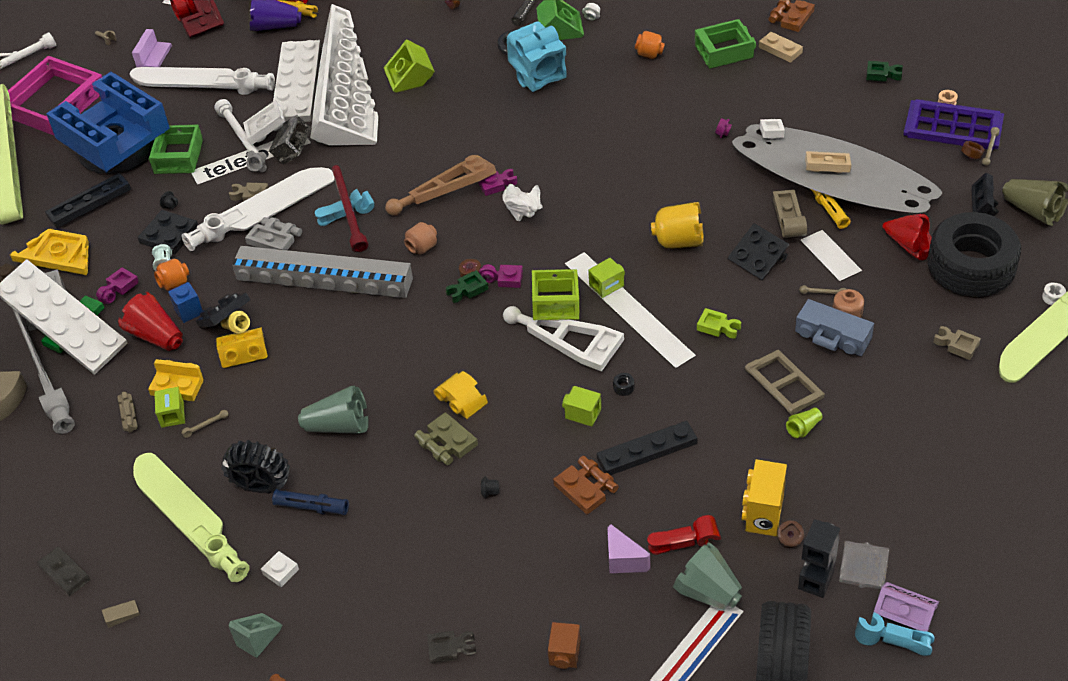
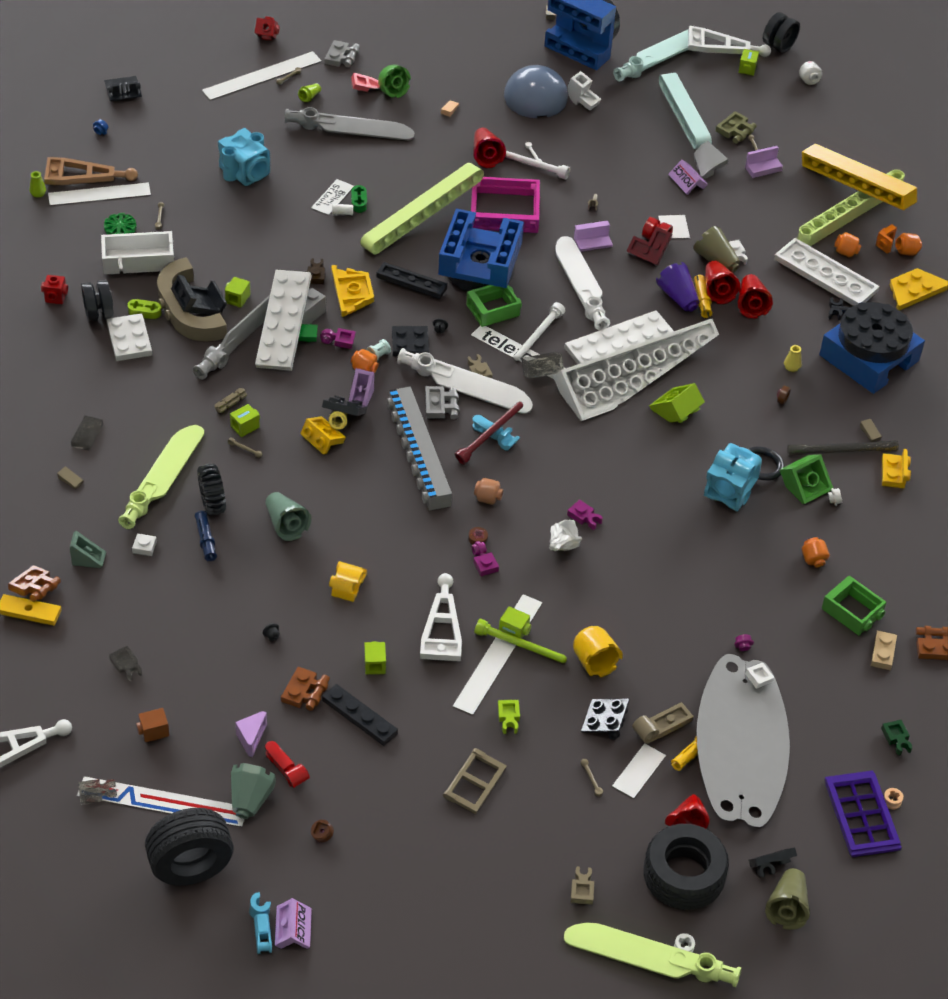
camera: 55 degrees right, 0 degrees up
(150, 322) = (310, 371): red cone -> none
(177, 374) = (271, 413): yellow bracket -> none
(185, 302) = (341, 382): blue brick -> none
(205, 286) = (362, 386): none -> lavender slope
(252, 165) = (509, 356): light grey plate -> none
(264, 122) = (550, 340): white plate -> none
(450, 434) = (309, 590): olive plate -> none
(468, 285) = (456, 542): dark green plate -> none
(473, 166) = (585, 496): medium nougat plate -> none
(555, 306) = (454, 596): lime window -> none
(594, 305) = (483, 628): none -> lime piece
(623, 378) = (414, 671): black axle -> none
(764, 497) = (339, 798): yellow brick -> none
(802, 423) = (436, 805): lime cone -> none
(820, 558) = (292, 845): black arch -> none
(828, 162) = (737, 727): tan plate -> none
(834, 328) = (547, 804): sand blue piece -> none
(849, 302) = (575, 795): nougat head -> none
(864, 565) = (320, 889): clear piece -> none
(972, 149) = (833, 835): reddish brown tile -> none
(994, 132) = (862, 844): dark tan hinge -> none

